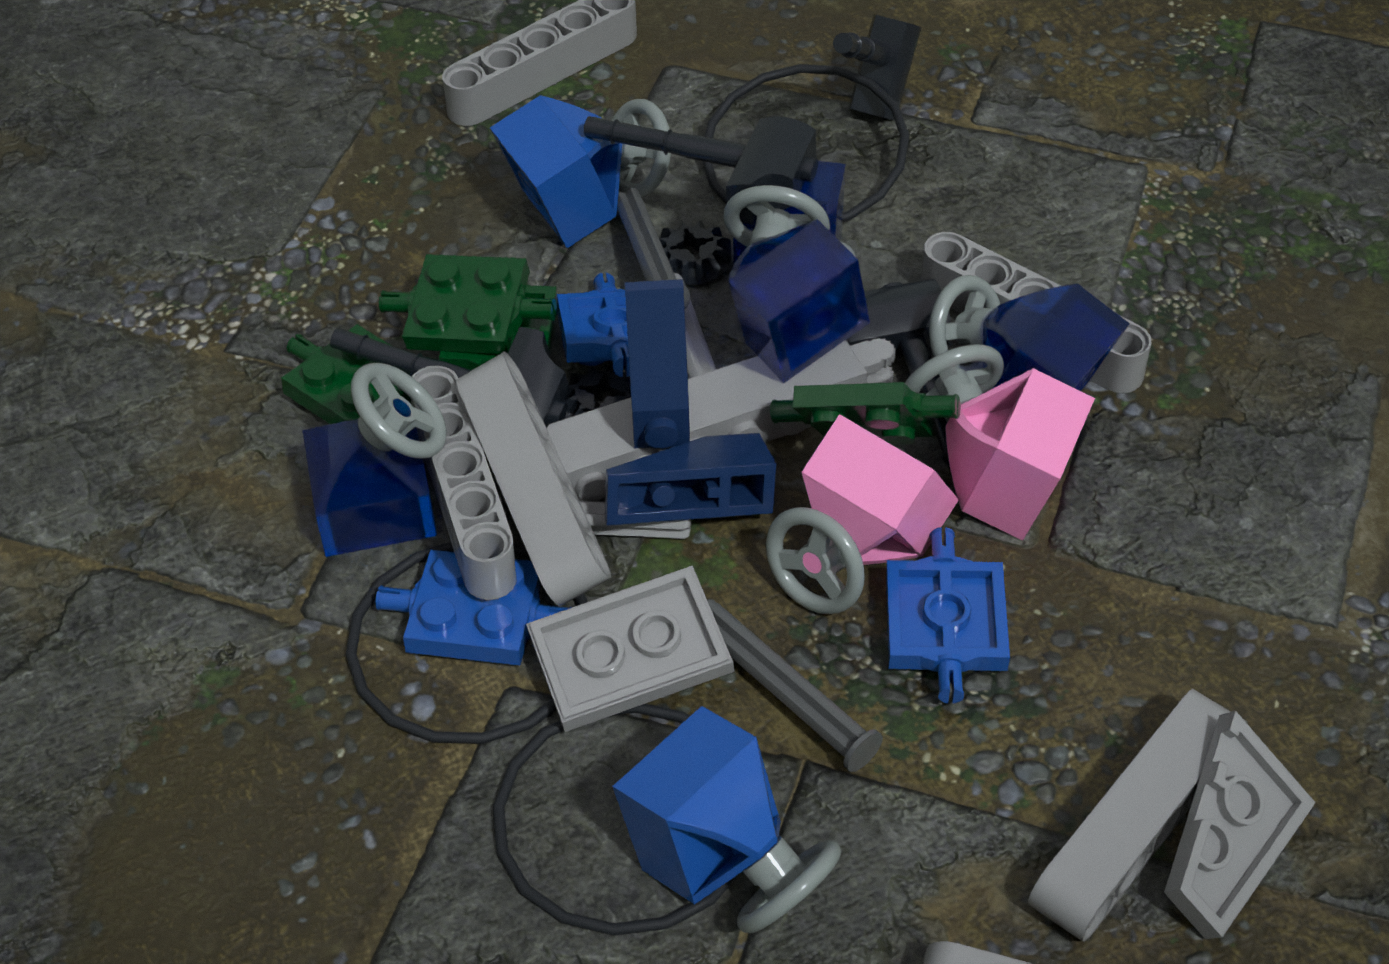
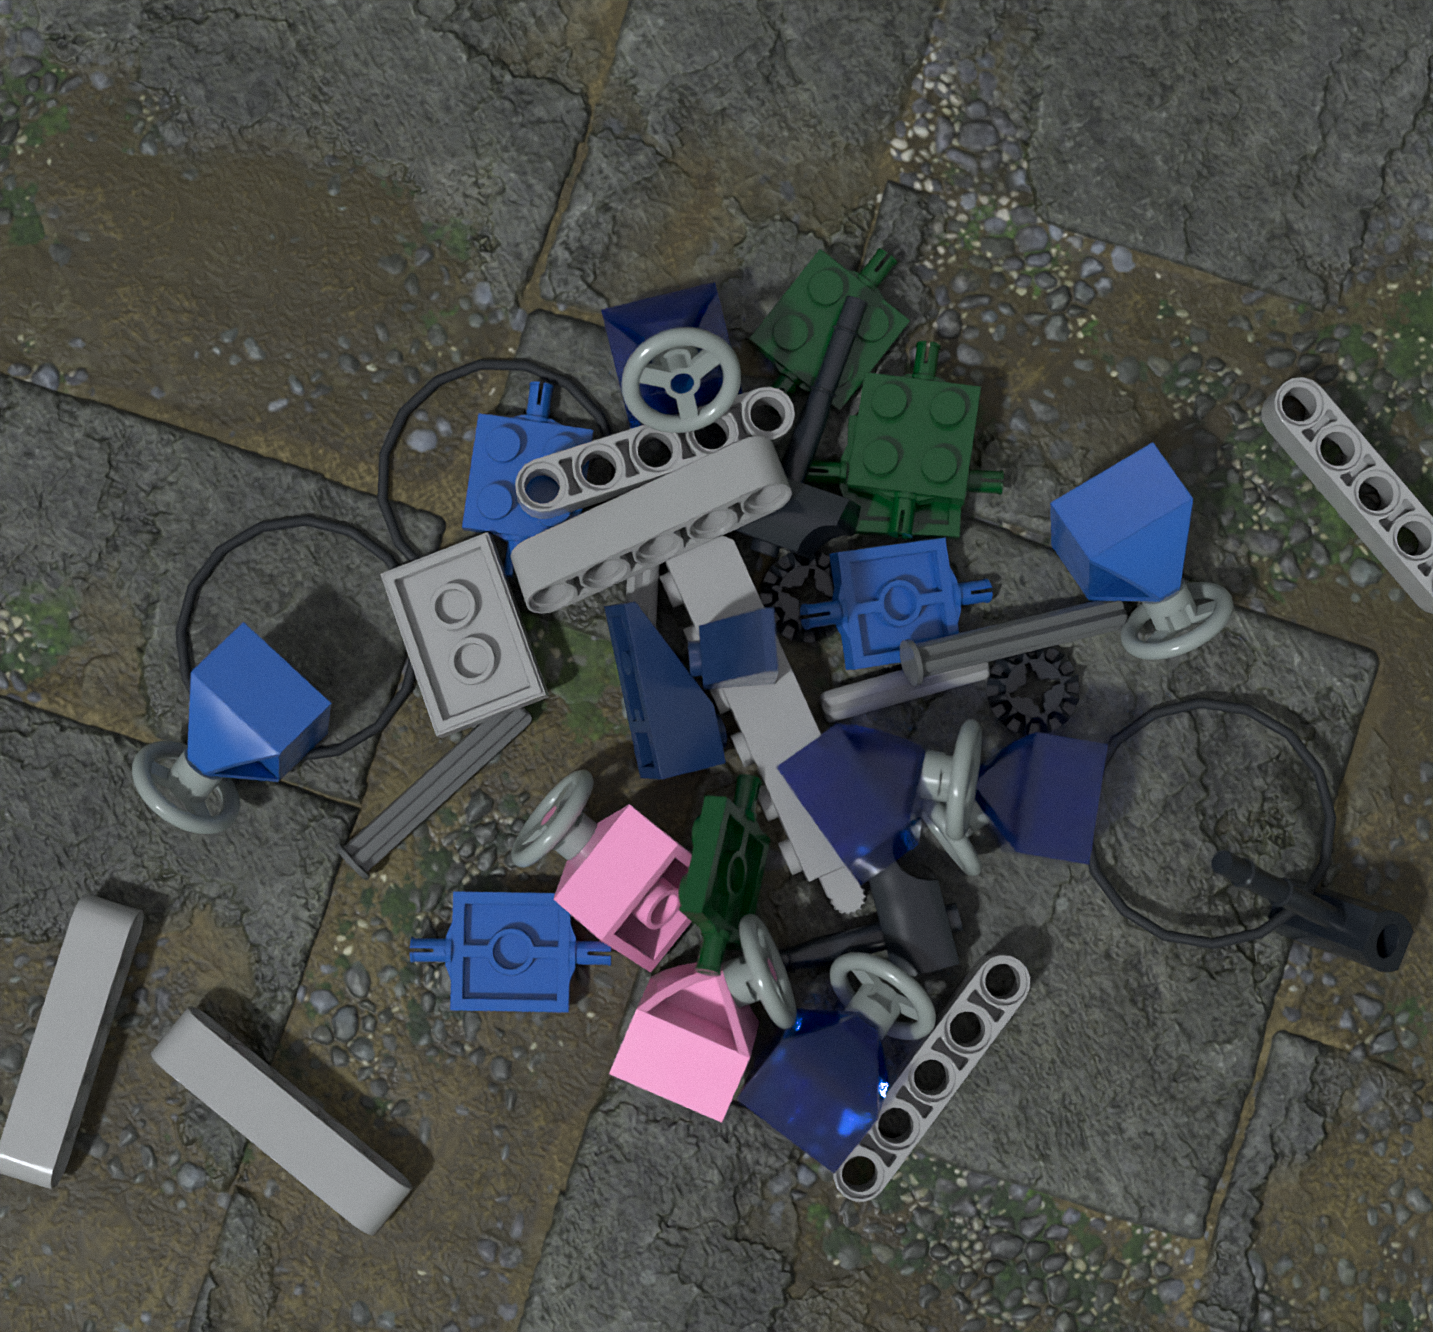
camera: 90 degrees right, 35 degrees up
(776, 154) = (1060, 775): black piece -> none
(1235, 827) = (254, 1206): light grey wing -> none

